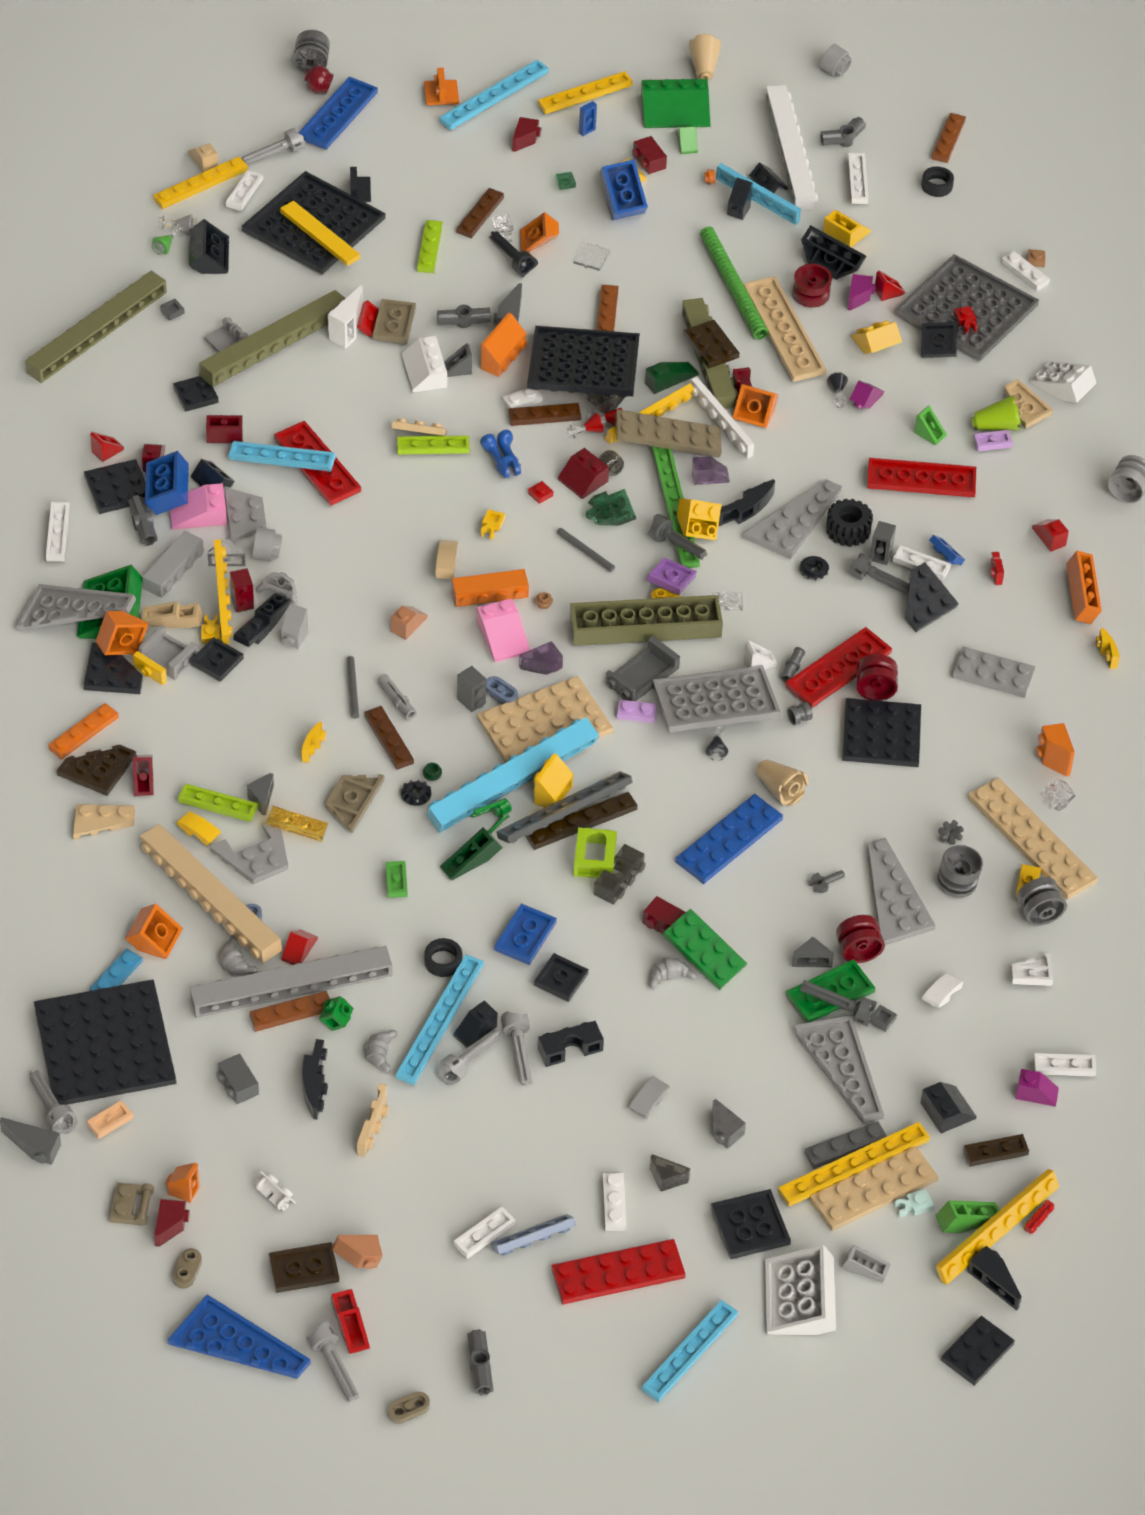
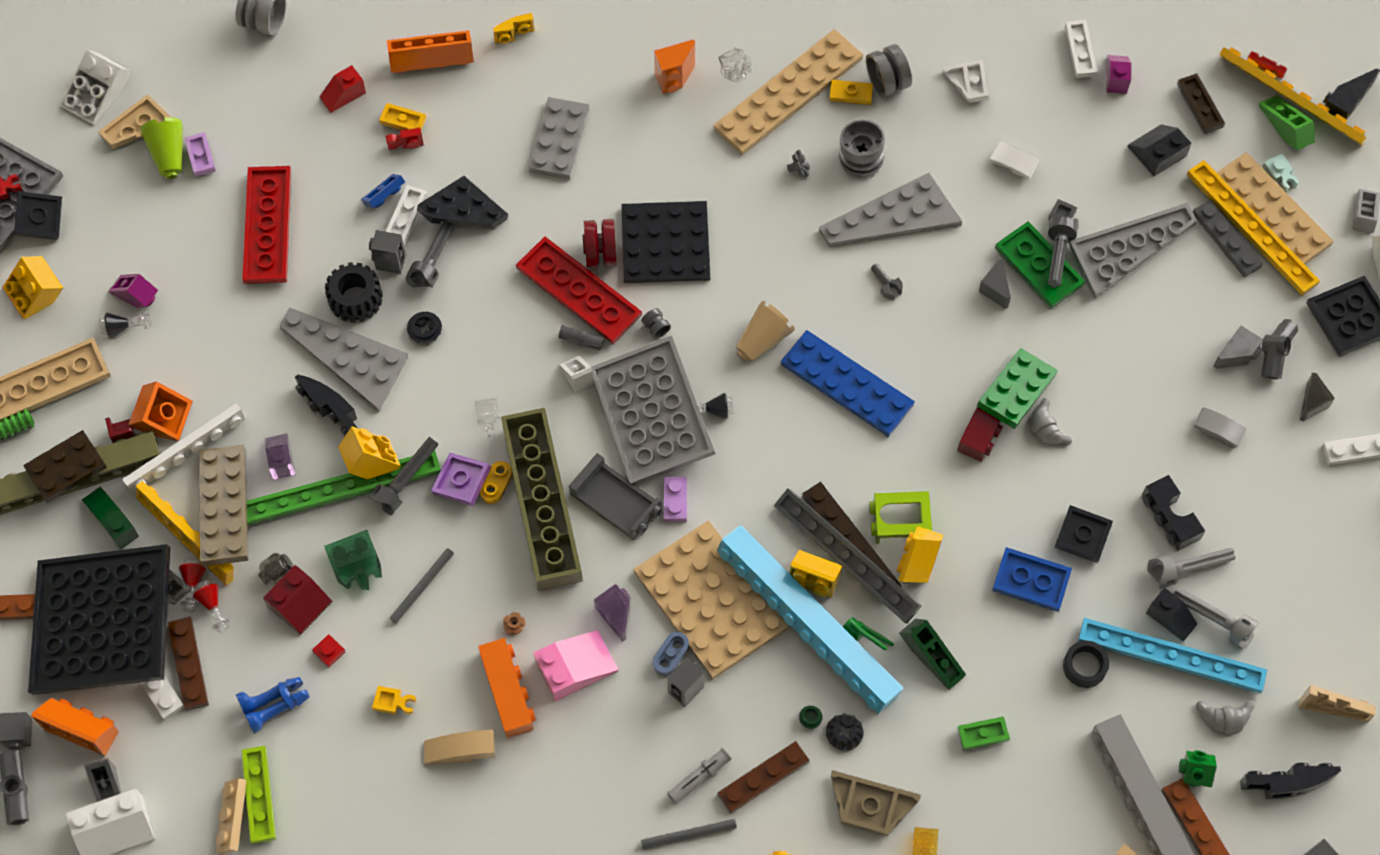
camera: 95 degrees left, 15 degrees up
(298, 946) = (1103, 830): red slope -> none
(406, 621) = (571, 780): nougat slope -> none
(552, 847) = (921, 554): none -> yellow slope
(613, 886) = (946, 491): clear smoke arch -> none
(711, 1147) = (1276, 348): none -> dark grey piece
(860, 938) = (976, 234): dark red wheel -> none
(929, 427) = (184, 220): bright green slope -> none
(1018, 568) = (401, 118): none -> yellow plate

